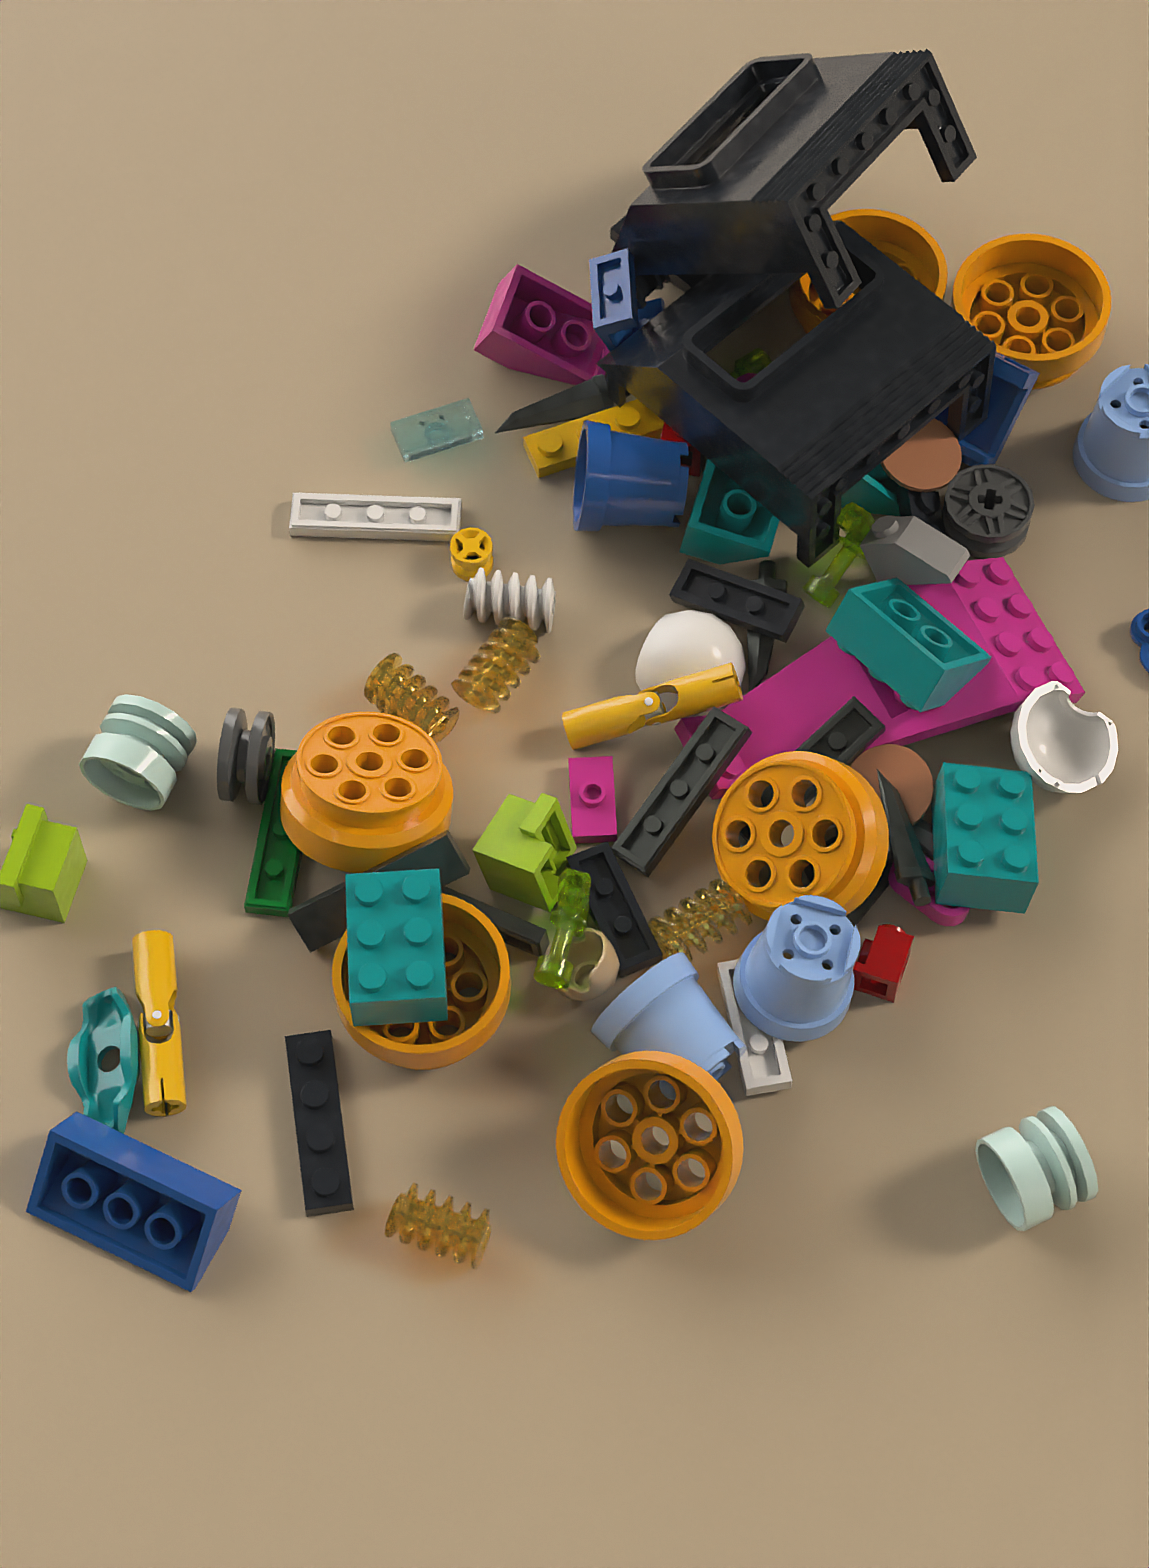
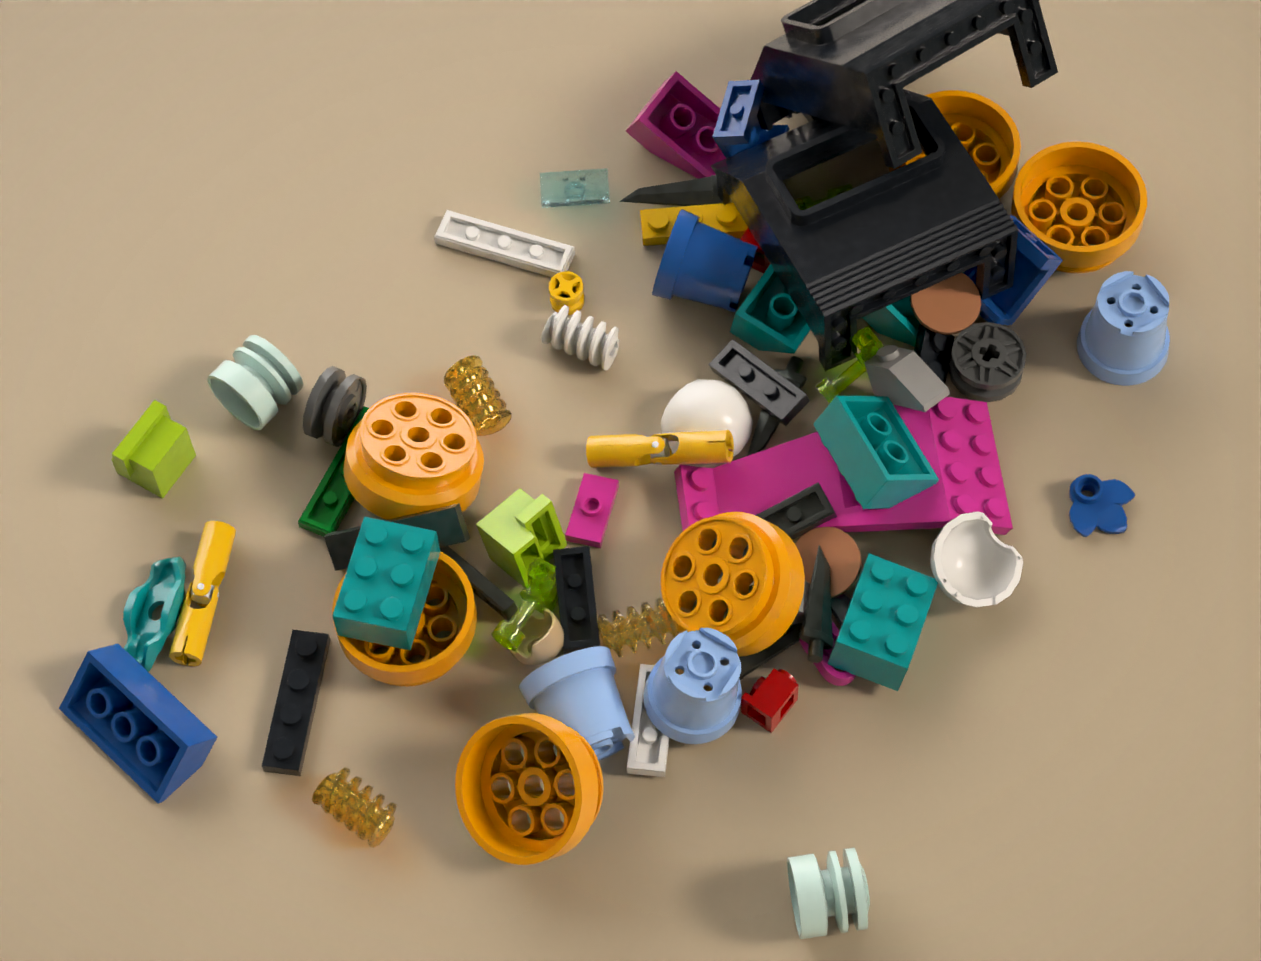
camera: 20 degrees right, 0 degrees up
(497, 665) = (553, 386): clear yellow piece -> none
(681, 791) = (659, 521): pearl dark grey tile -> none

